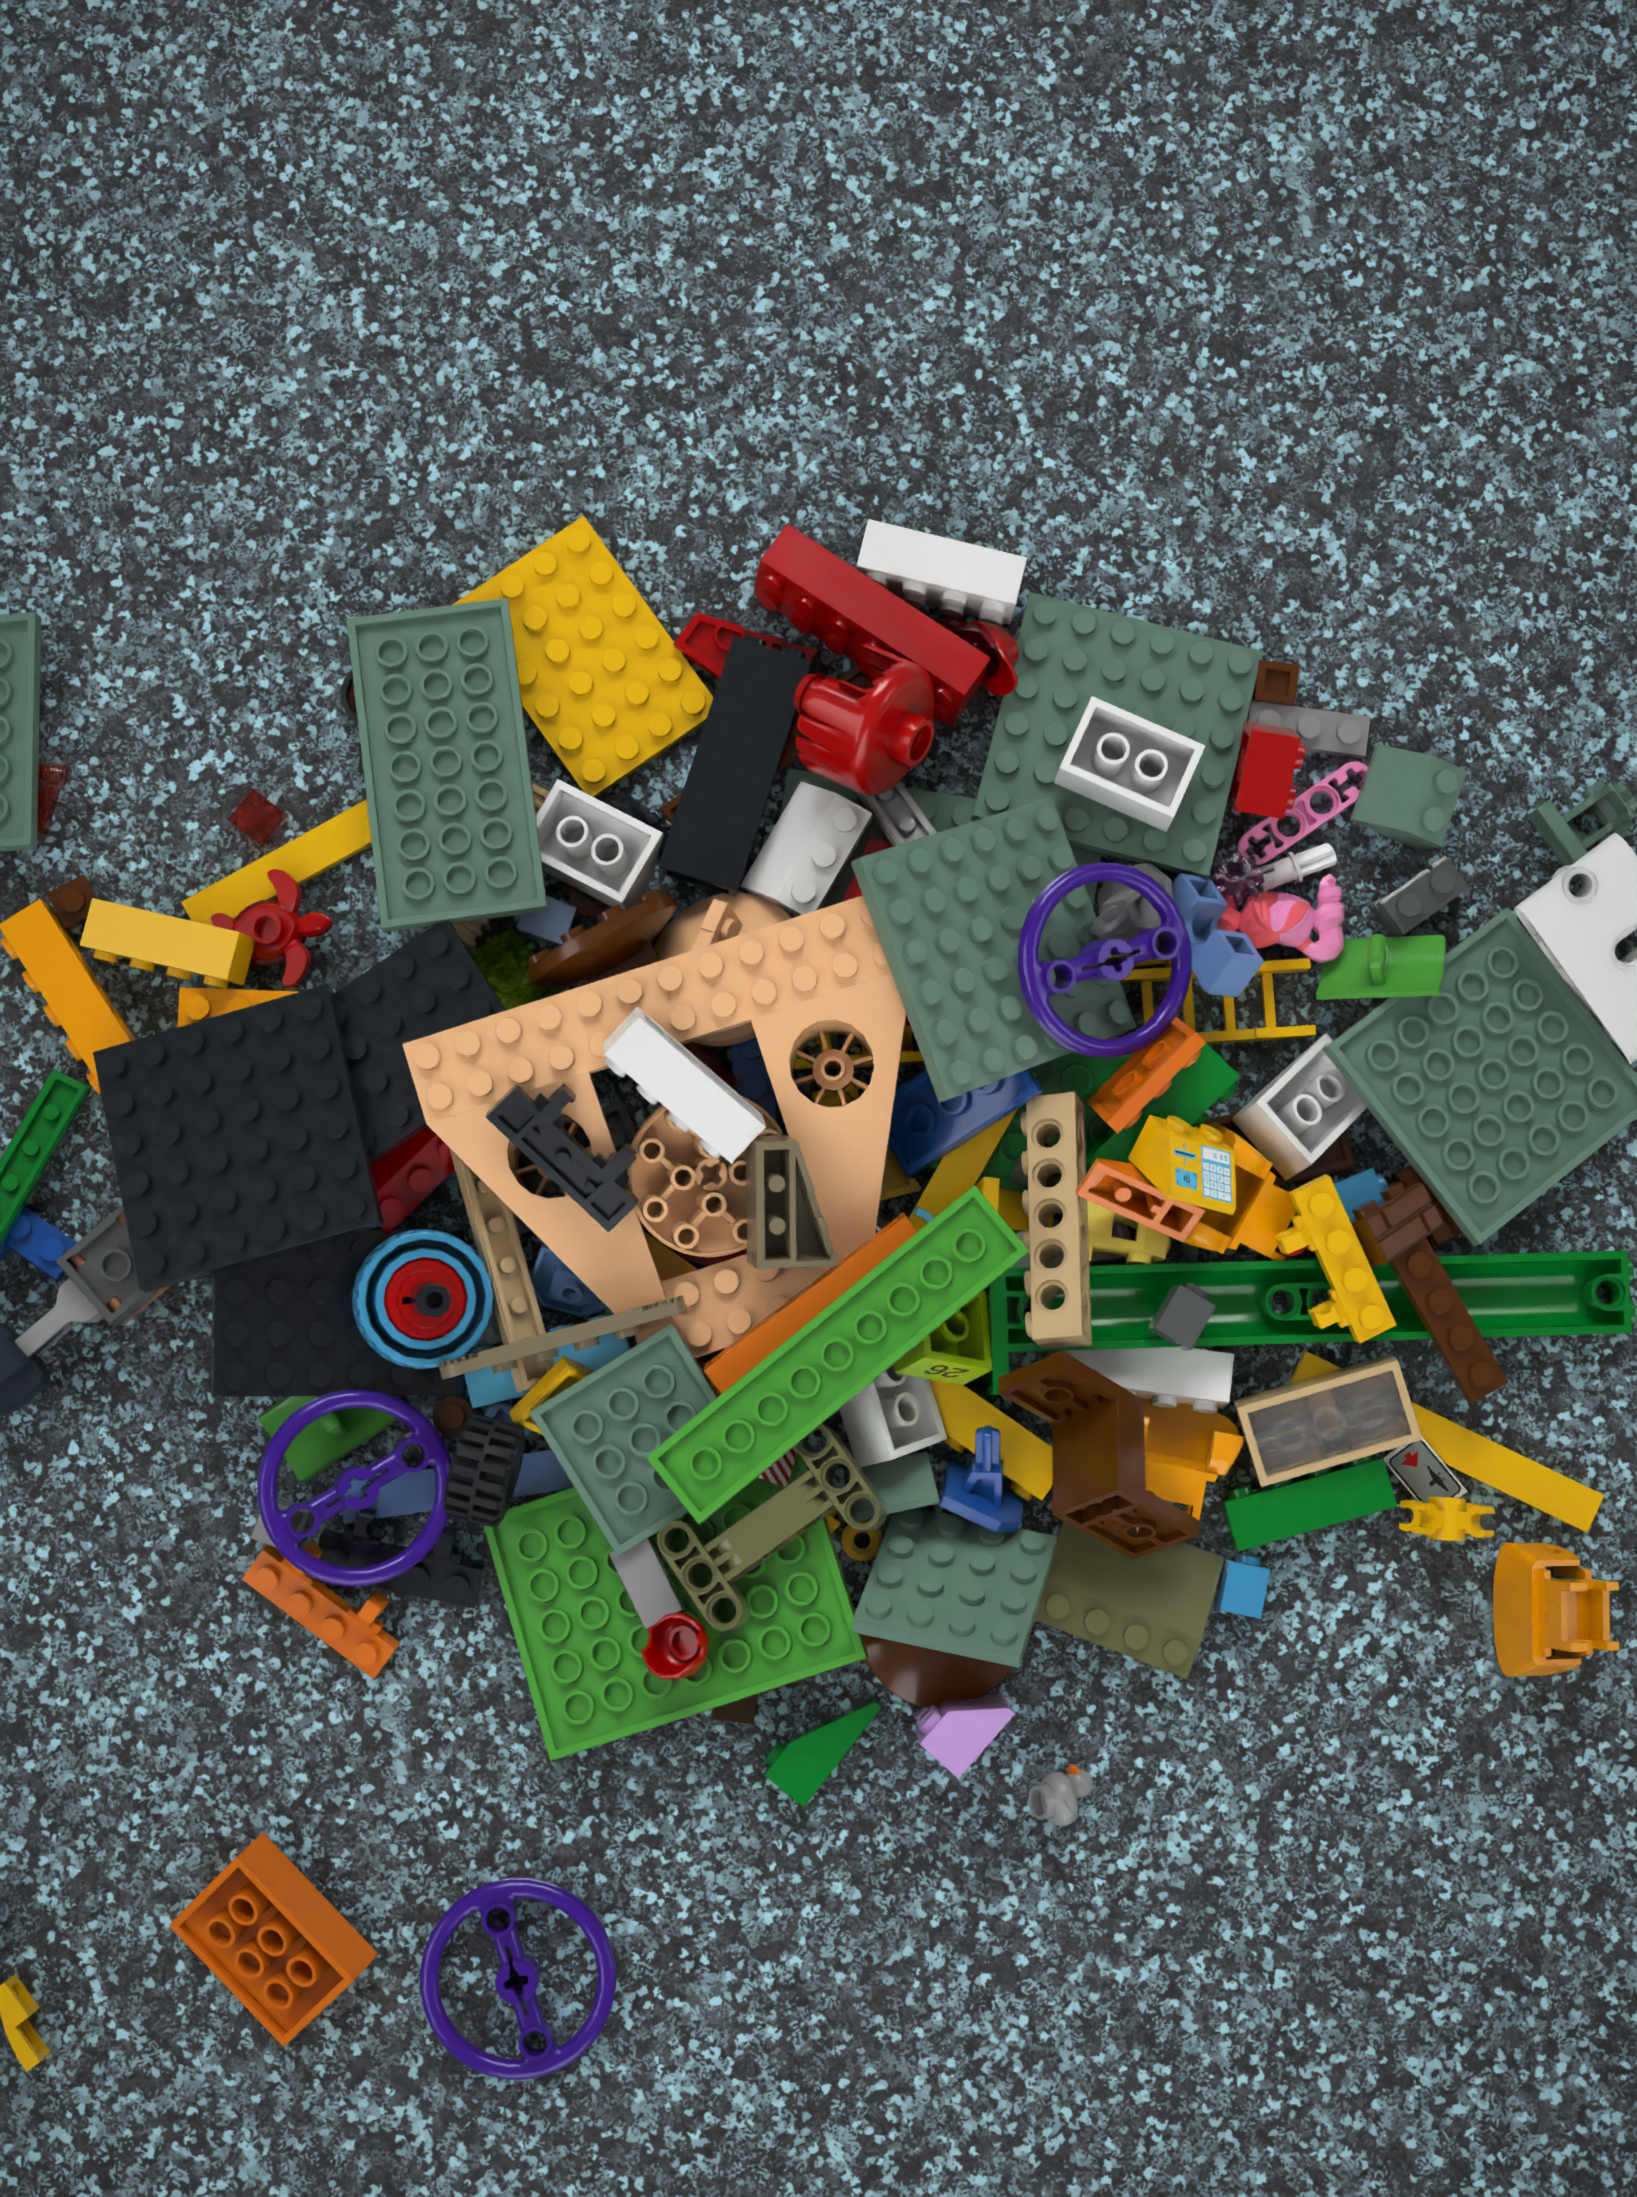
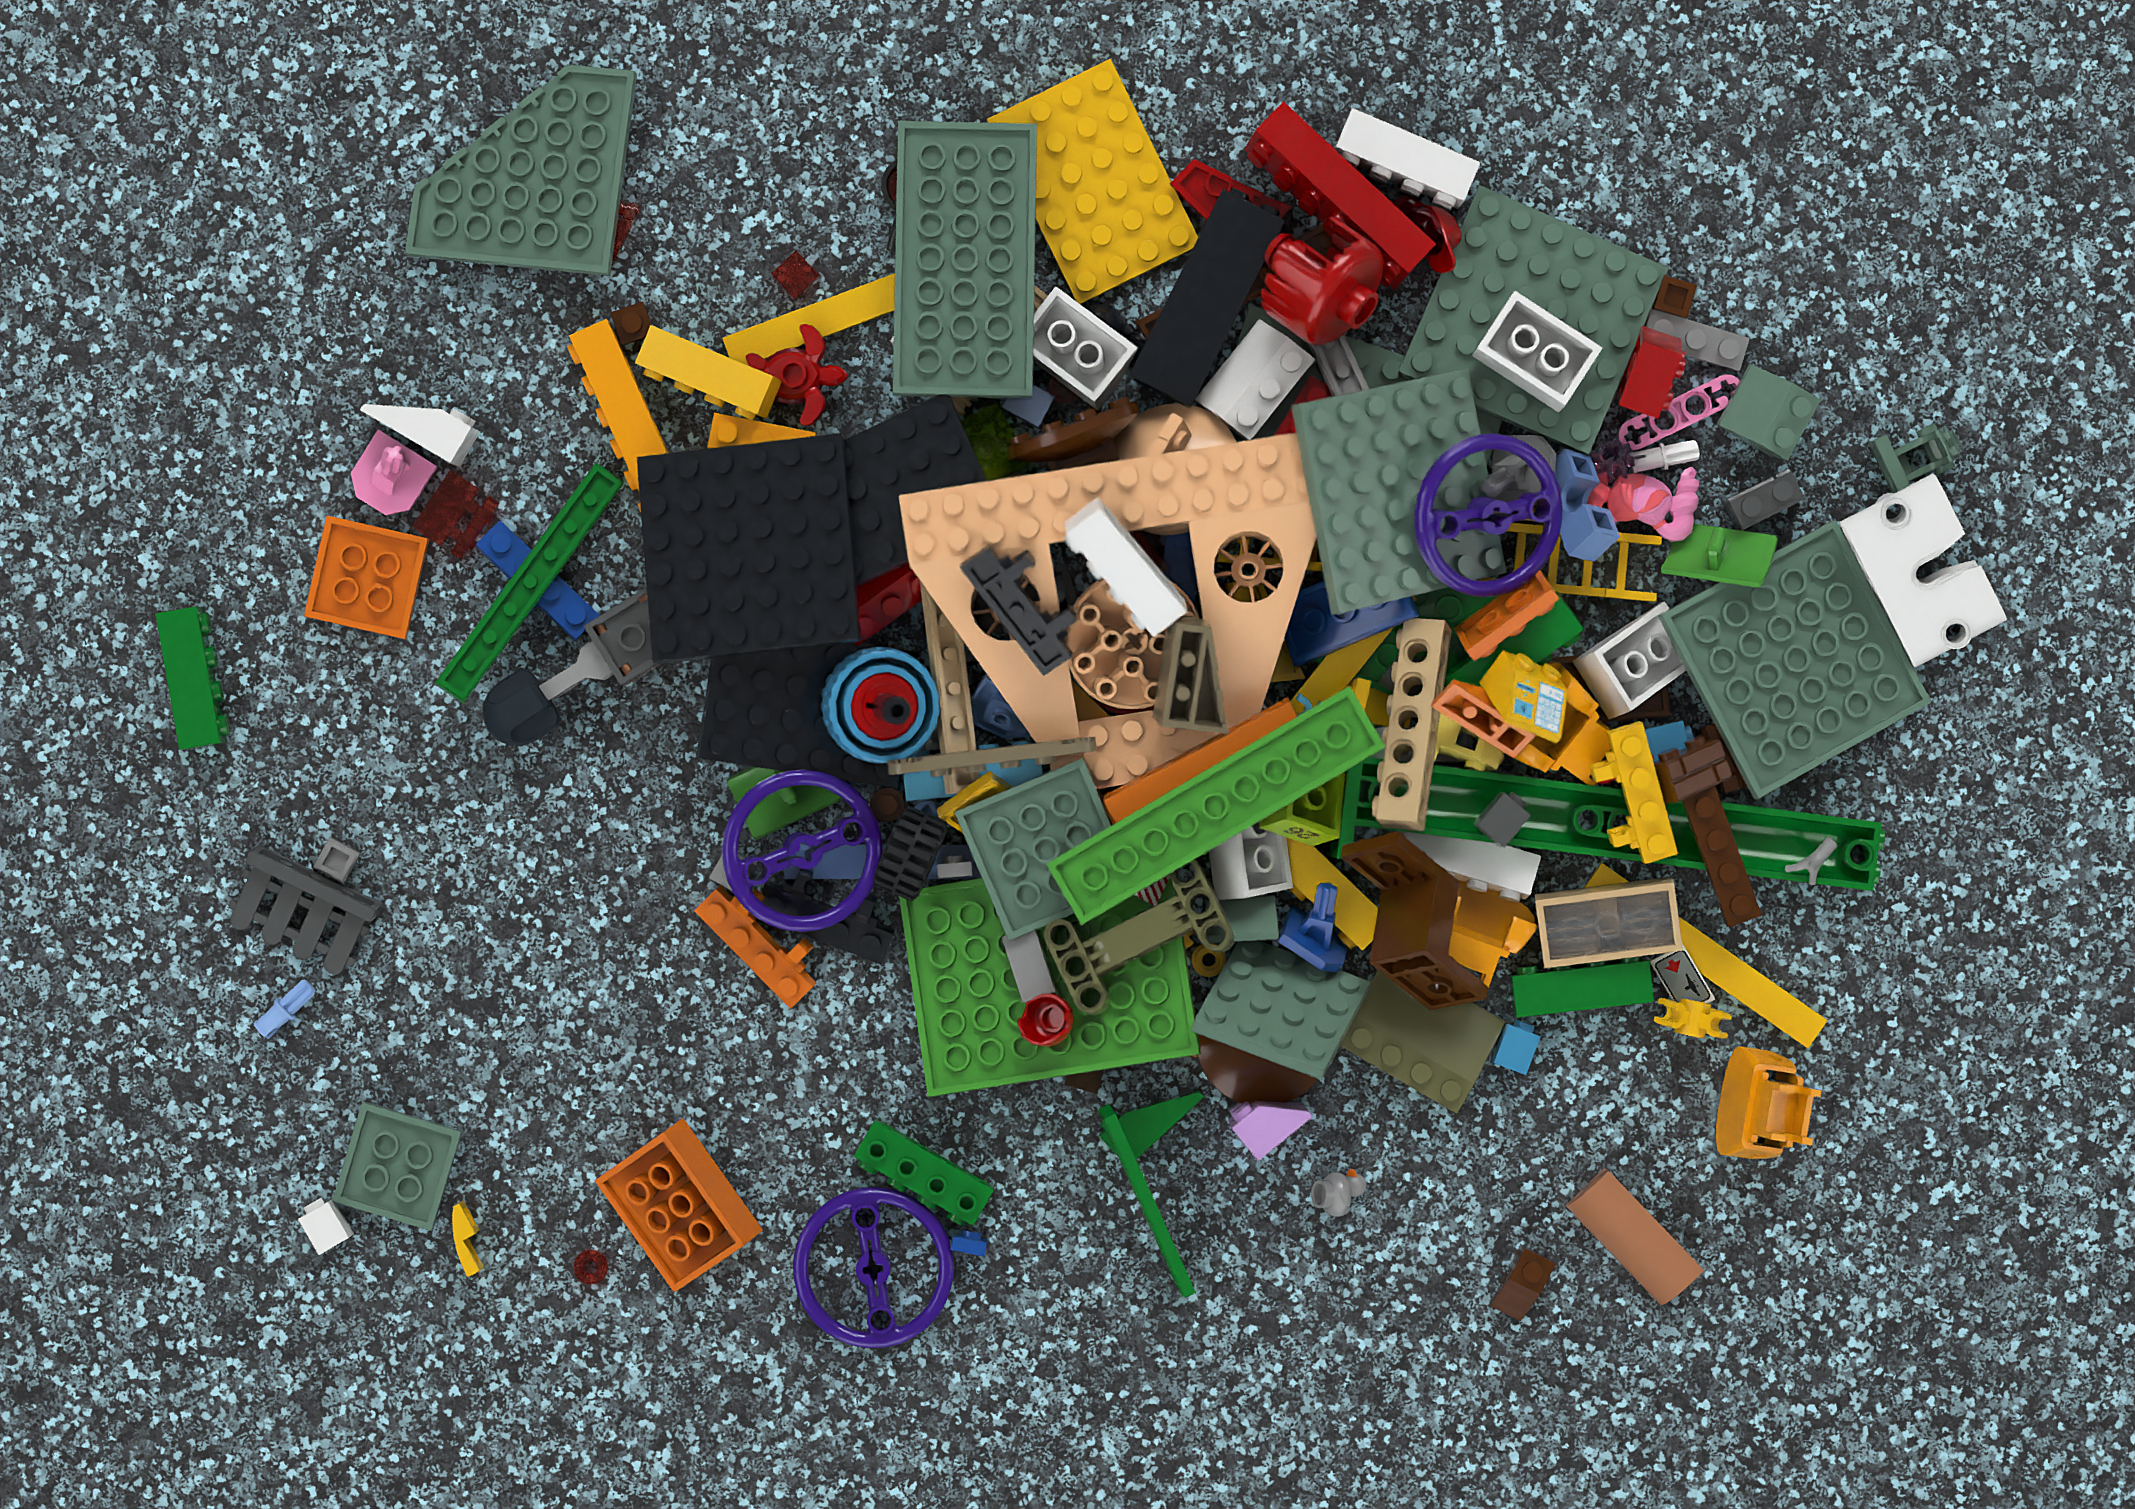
camera: 10 degrees right, 5 degrees up
(167, 2038) = (588, 1277): none -> clear red plate
(542, 1478) = (954, 867): none -> light grey plate
(560, 1852) = (924, 1172): none -> green brick
(628, 1929) = (969, 1242): none -> blue plate
(832, 1846) = (1146, 1201): none -> green tile
(1299, 1869) = (1522, 1282): none -> reddish brown slope
(1423, 1793) = (1634, 1237): none -> nougat brick
(1558, 1307) = (1815, 860): none -> light grey bar

